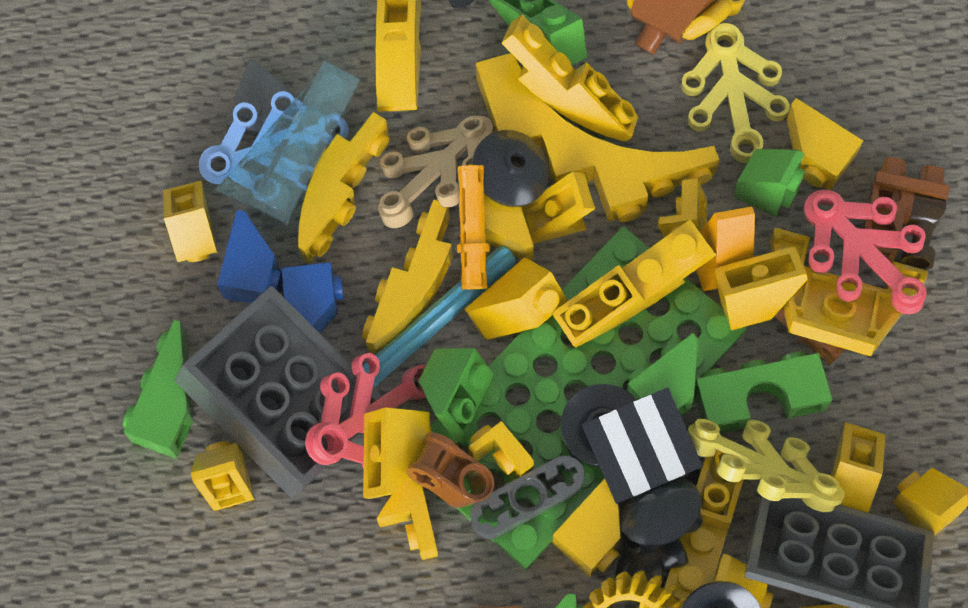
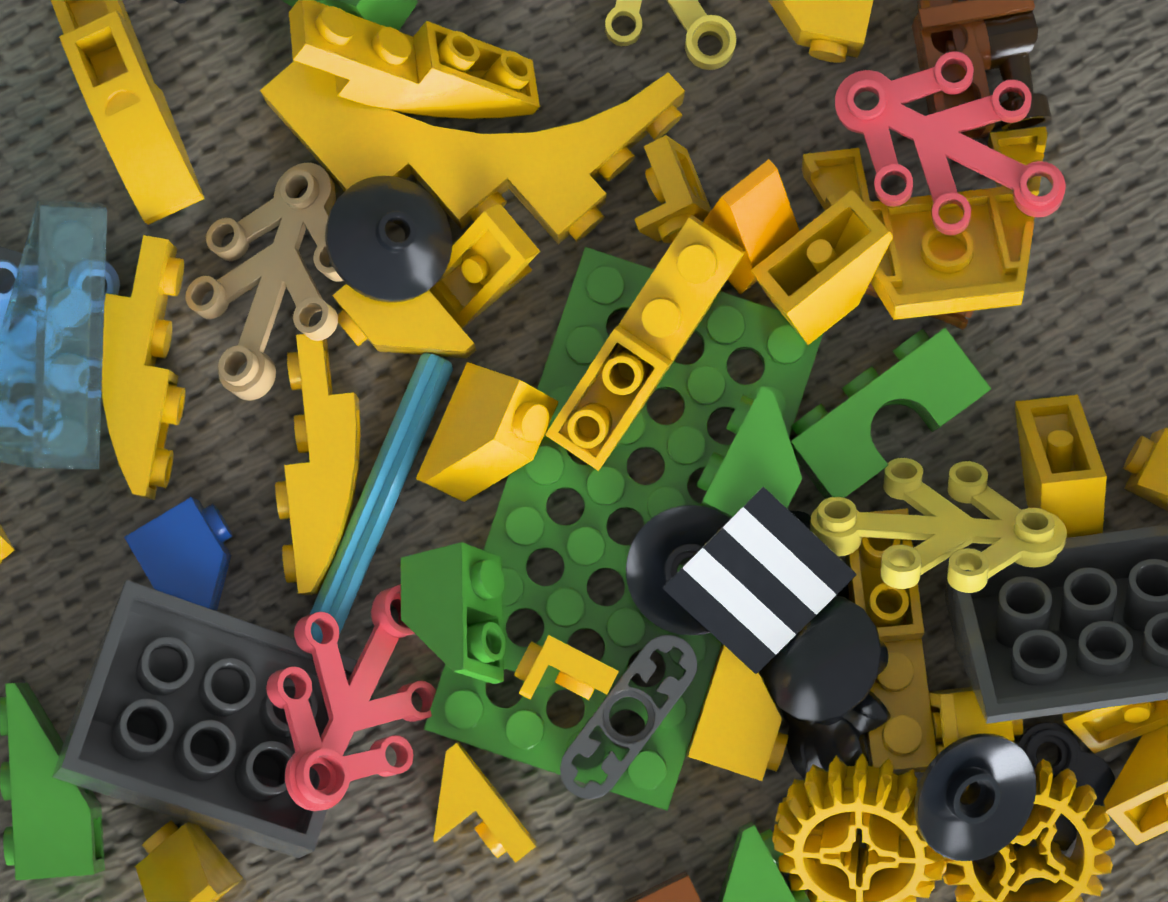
camera: 30 degrees left, 15 degrees up
(248, 263) = (70, 546): blue slope -> none
(390, 444) = (414, 739): yellow slope -> none
(443, 468) = (501, 739): dark orange piece -> none
(472, 227) = (381, 370): light orange pin -> none
(771, 179) = (770, 87): bright green slope -> none

